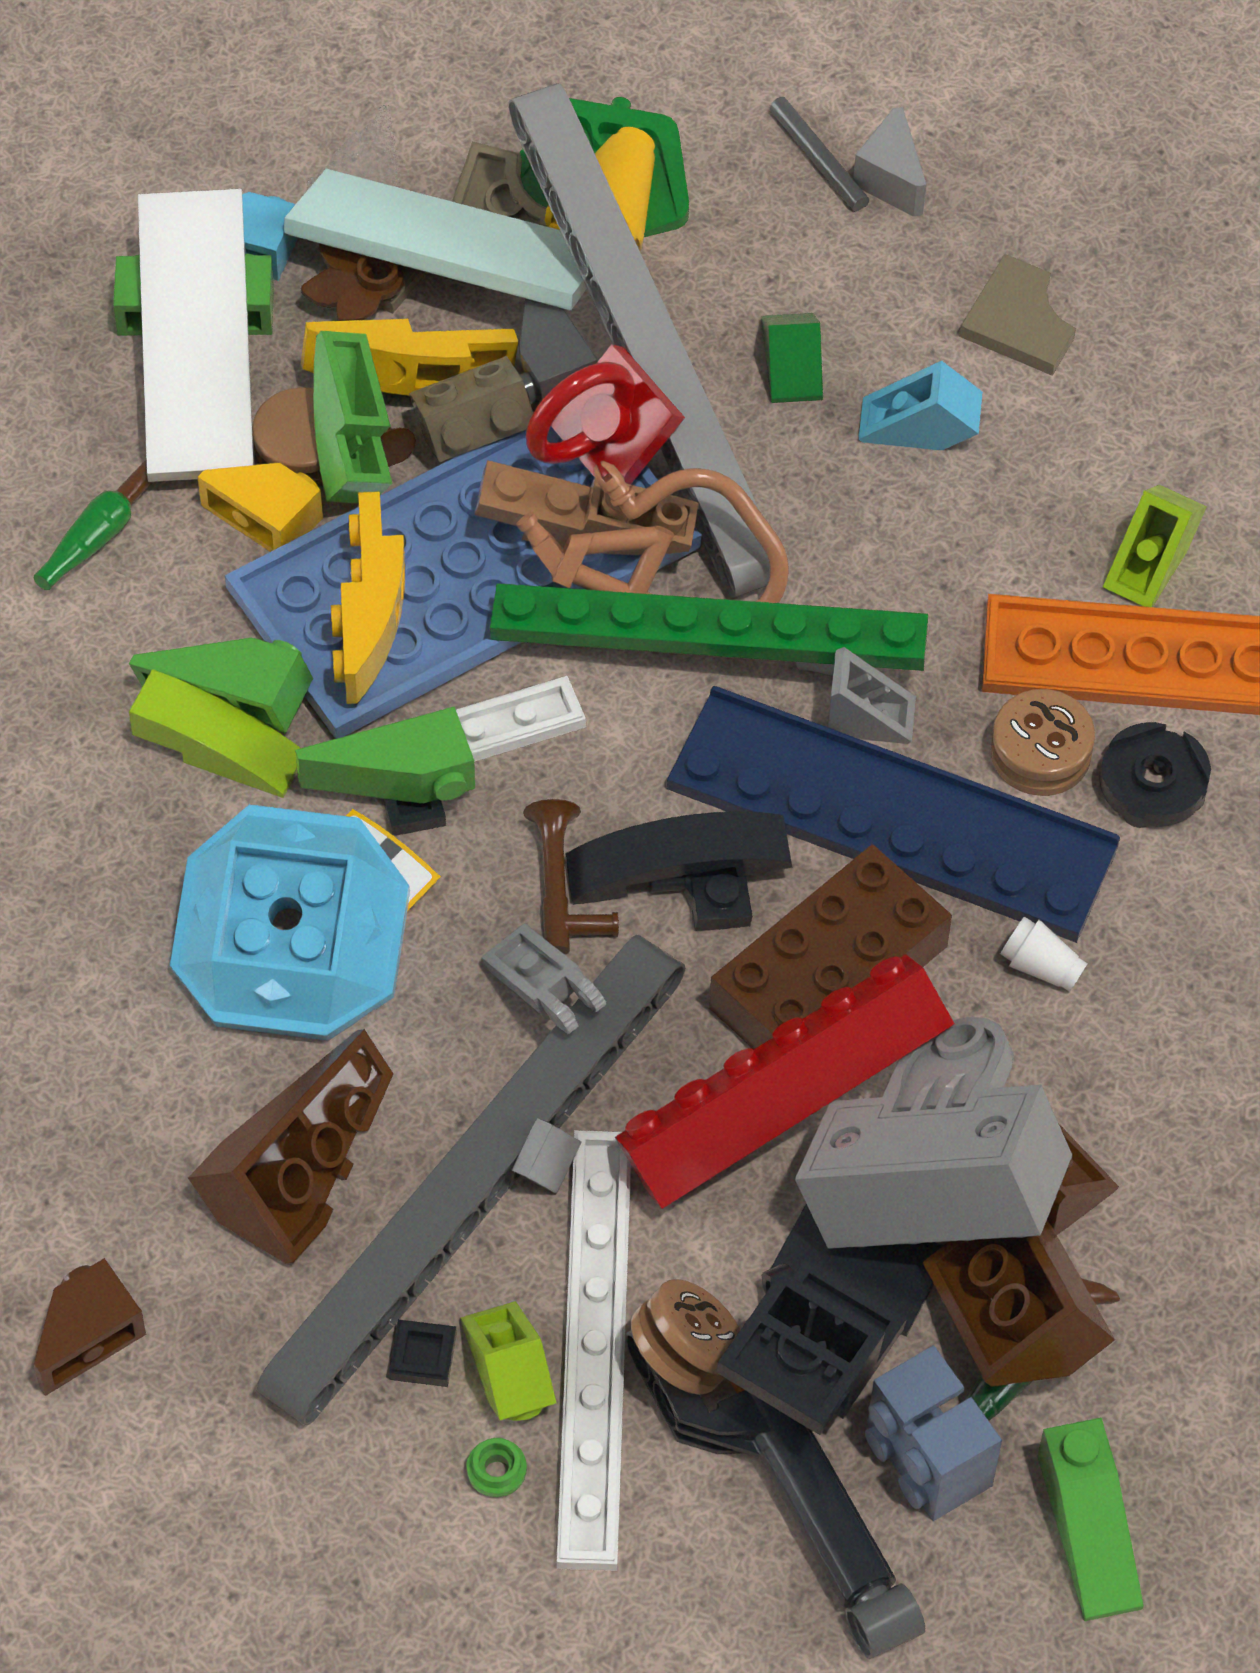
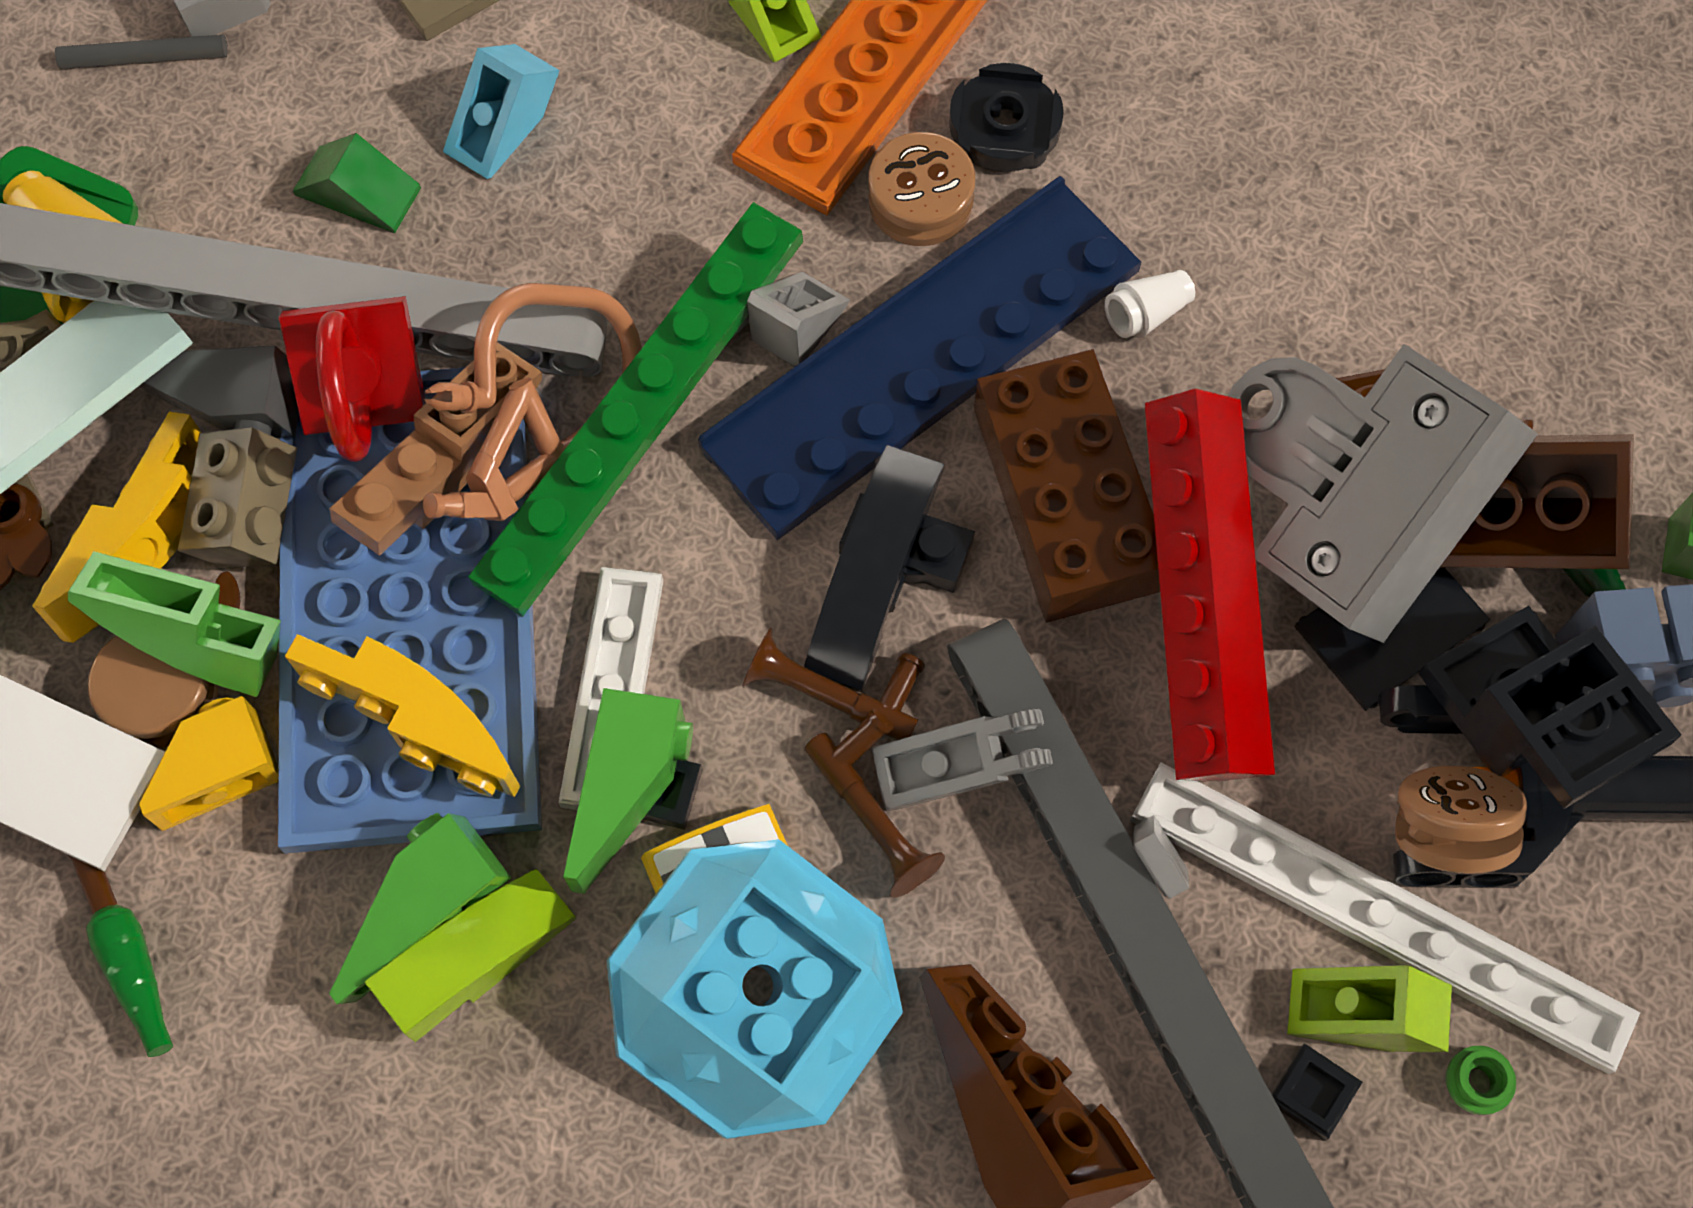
camera: 60 degrees left, 10 degrees up
(442, 992) = (835, 763): none -> reddish brown piece

